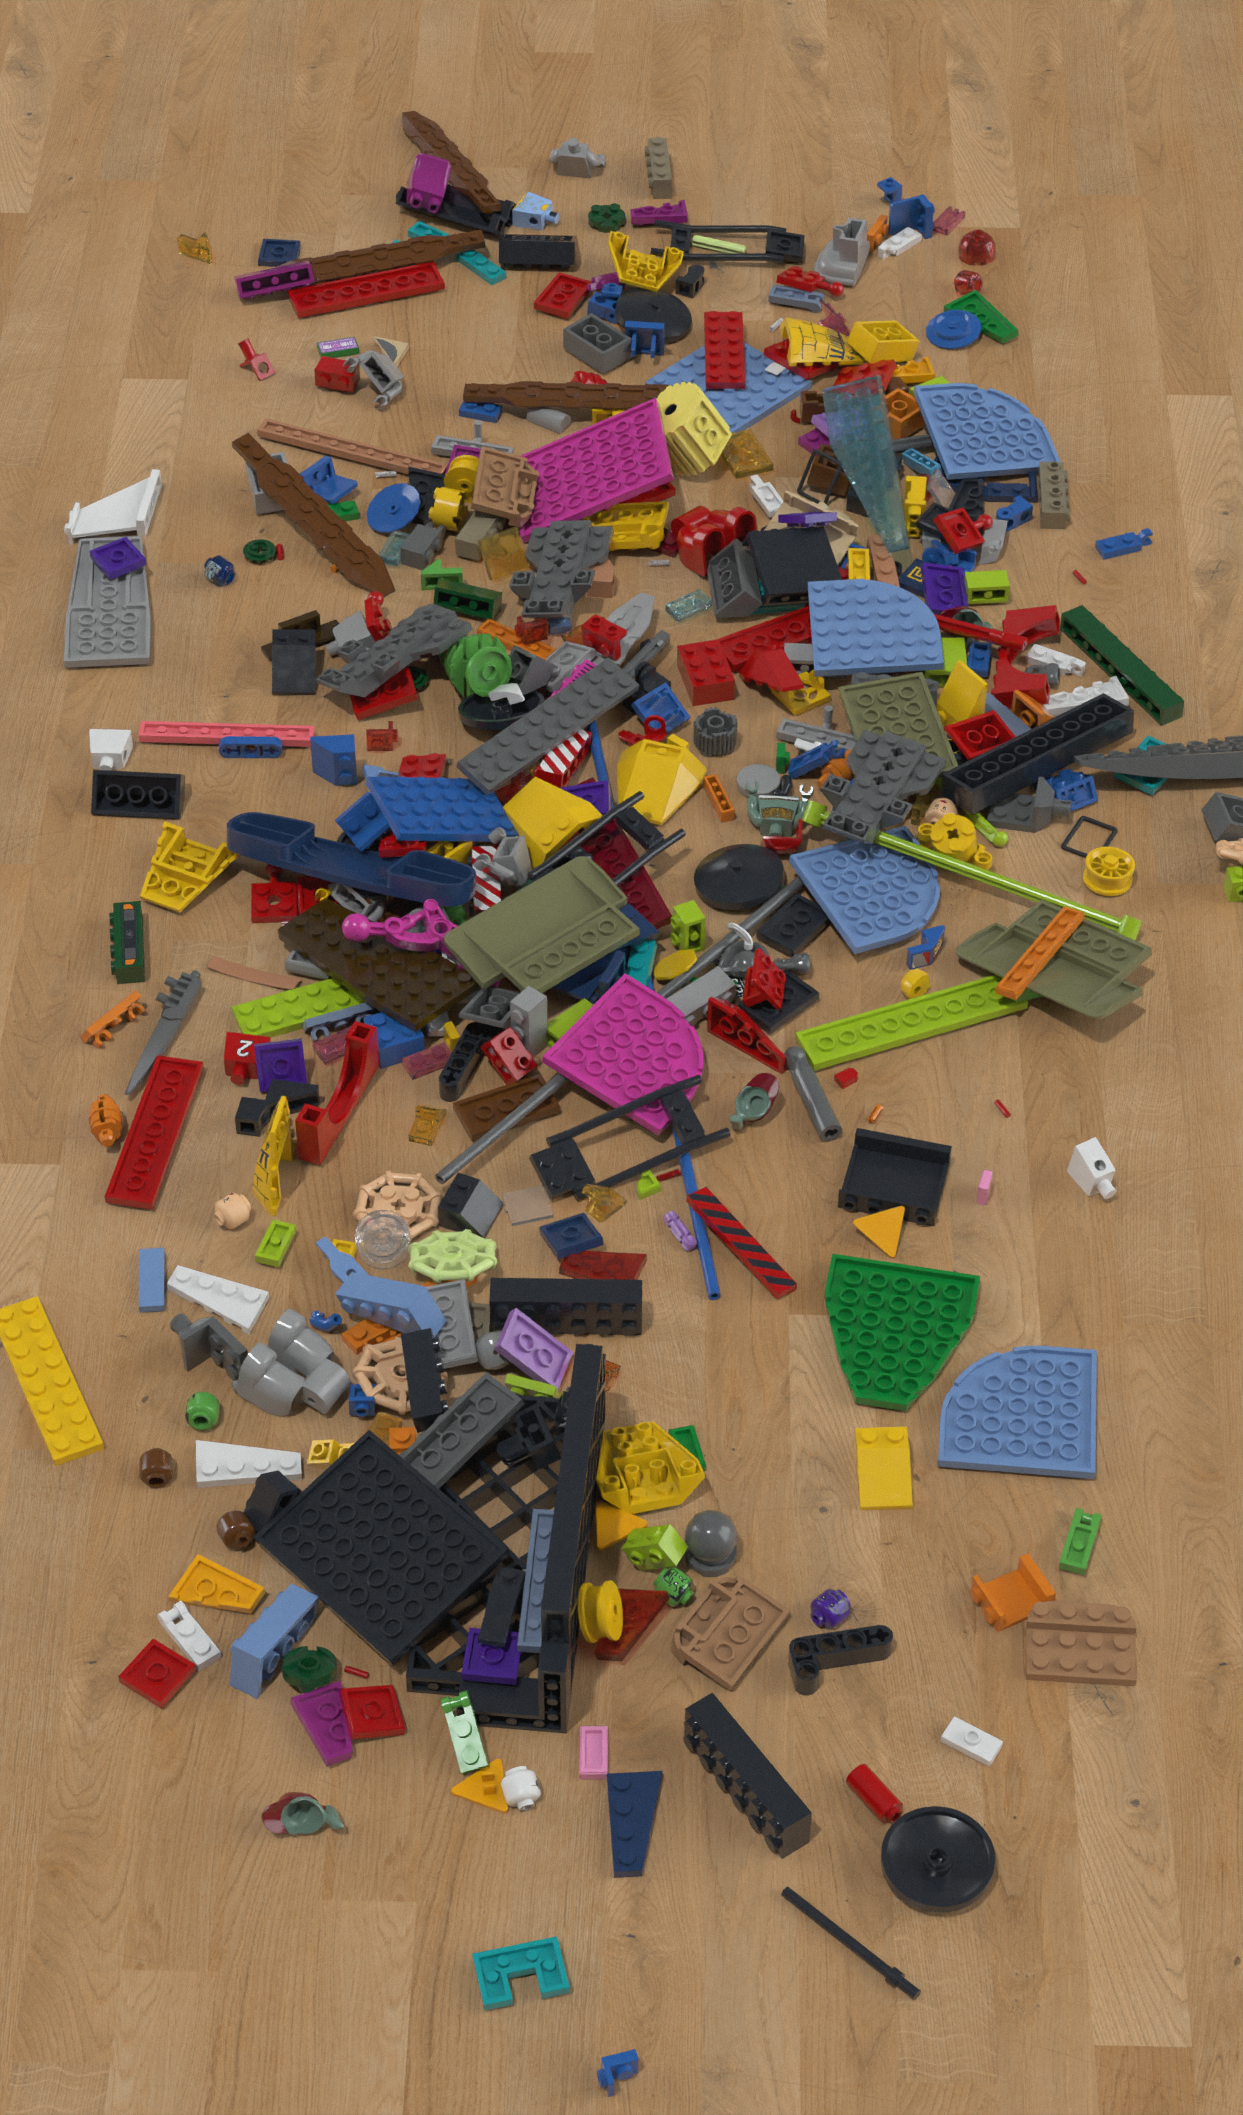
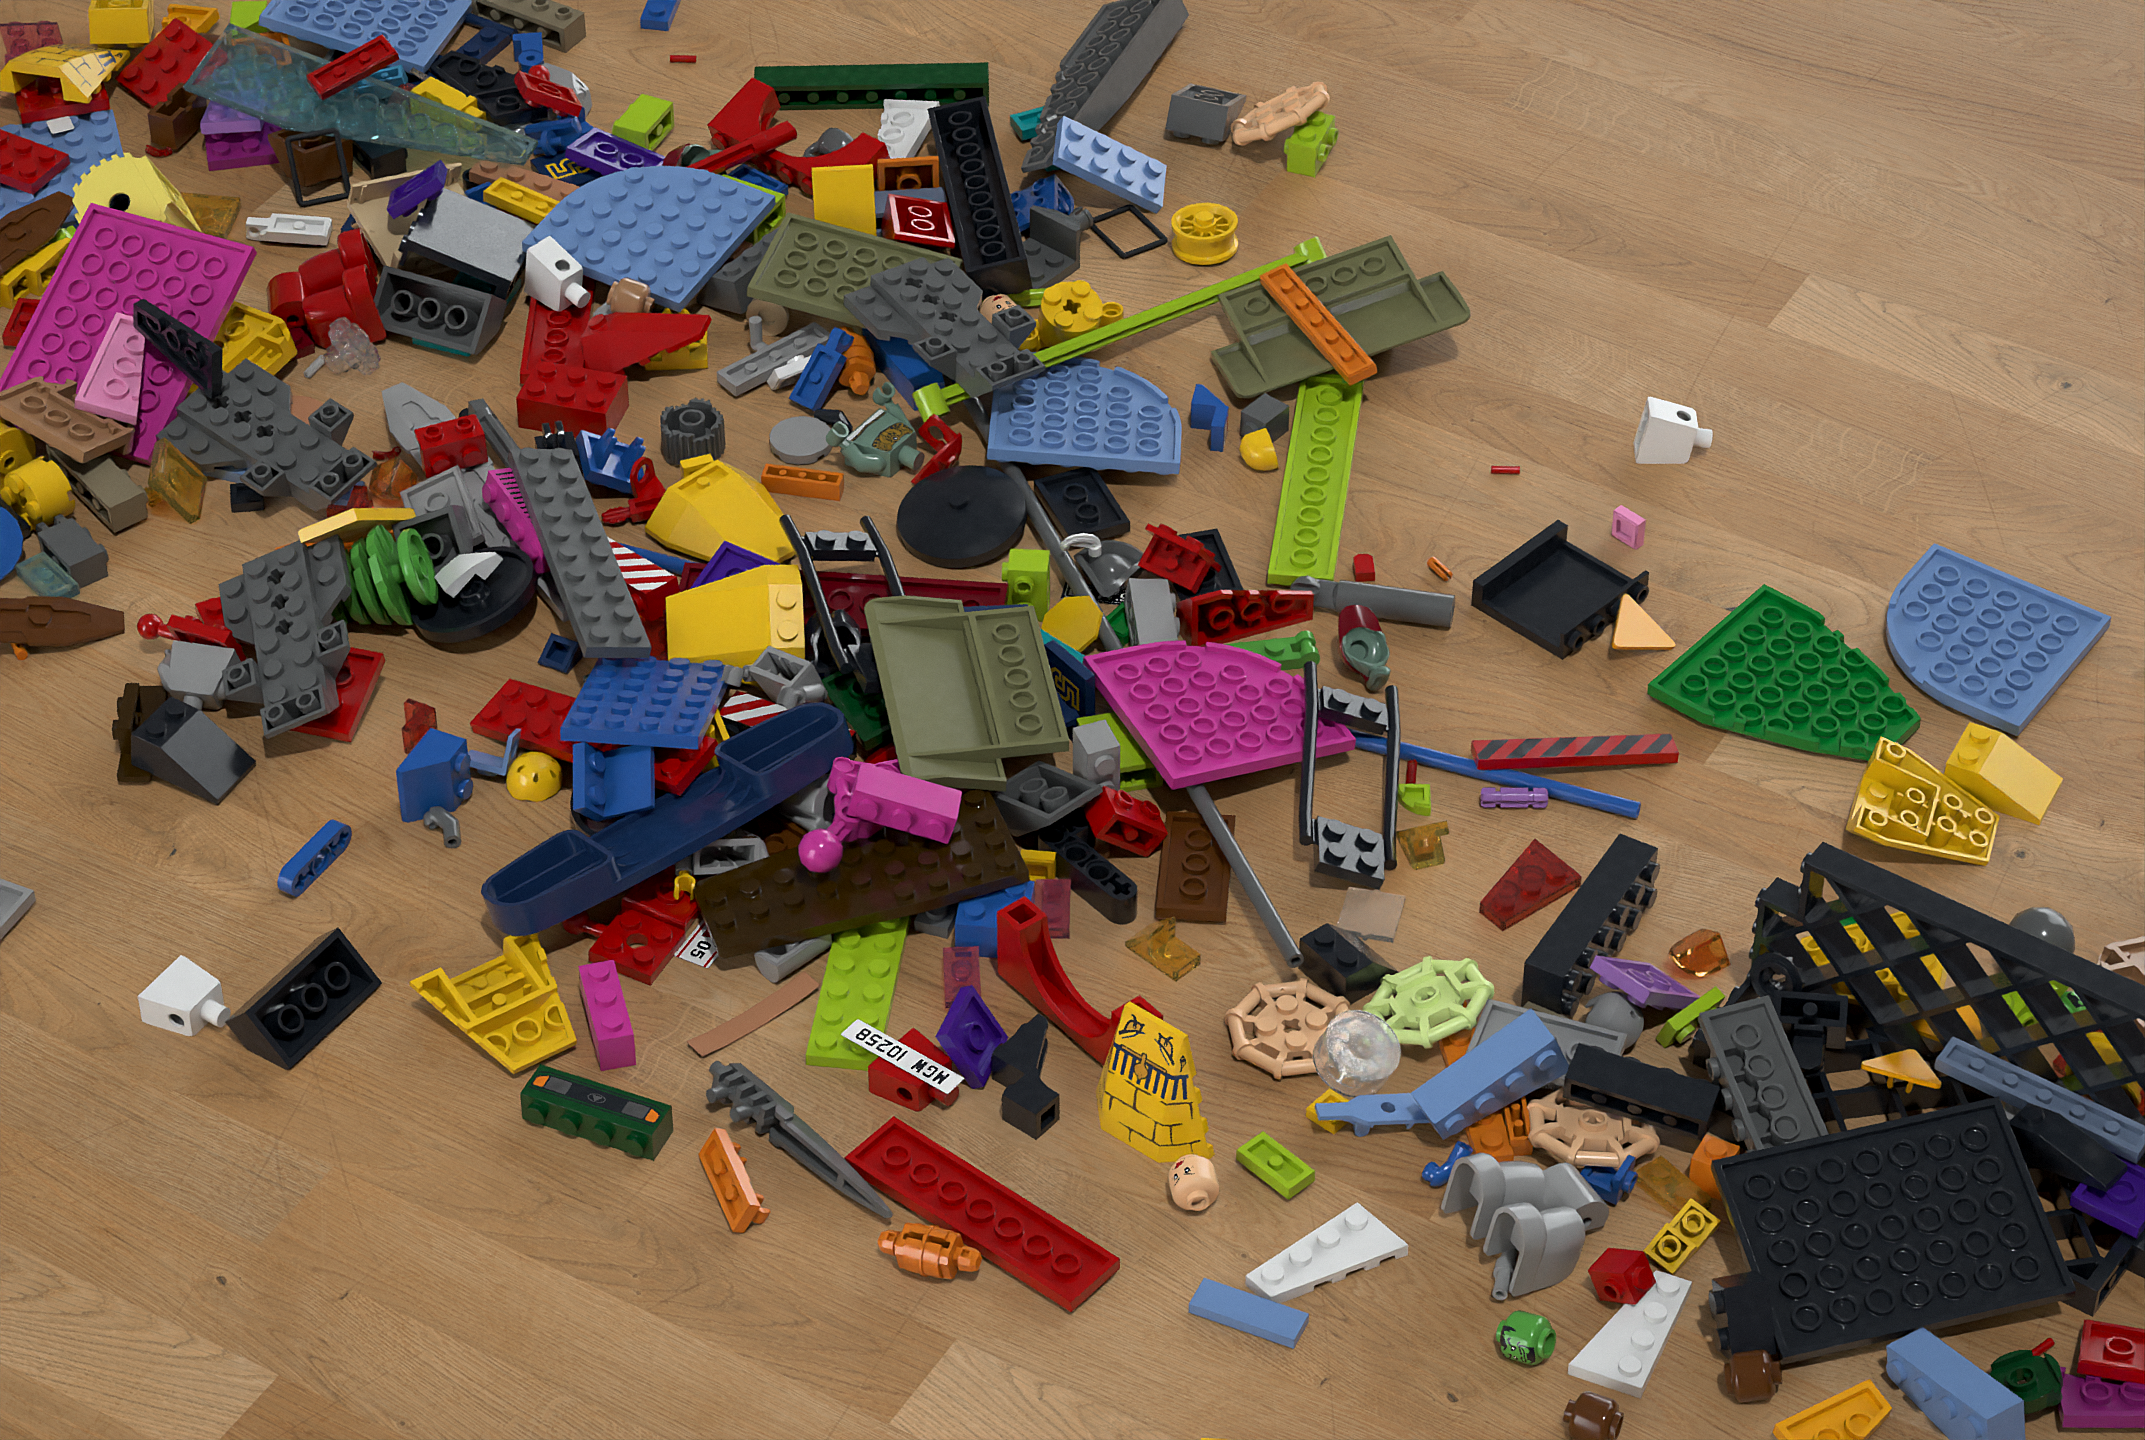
camera: 60 degrees left, 5 degrees down
(204, 912) = (607, 1015): none -> dark pink brick
(208, 1339) = (1432, 1274): dark grey plate -> none
(213, 732) = (258, 875): coral plate -> none
(243, 1042) = (902, 1056): none -> white sticker
(277, 1435) = (1621, 1275): none -> red brick
(317, 786) = (440, 817): none -> dark grey arm
(337, 1019) = (920, 946): sand blue plate -> none
(415, 943) = (904, 803): none -> dark pink brick
(435, 574) = (154, 560): bright green slope -> none
(468, 599) = (227, 548): dark green brick -> none
(495, 629) = (354, 523): none -> yellow tile
(528, 1498) = (1903, 1065): none -> light orange piece
(545, 484) = (115, 373): none -> bright pink wing
(571, 1235) = (1459, 890): dark blue tile -> none
(575, 493) = (183, 346): none -> black wing
(674, 565) = (350, 349): none -> clear plant
(688, 605) = (428, 369): clear light blue plate -> none
(727, 1066) = (1289, 651): none -> bright green plate
(782, 758) = (782, 401): green plate -> none
(794, 619) = (554, 276): none -> white torso
(798, 648) = (630, 296): none -> medium nougat head
(798, 963) = (1140, 537): dark grey piece -> none
(810, 1436) = (1919, 809): none -> yellow wedge
(890, 440) = (352, 67): none -> red tile
(944, 972) = (1265, 413): none -> dark grey brick
(1041, 656) = (811, 130): white hinge -> none
(1122, 795) = (1109, 164): none -> medium blue plate

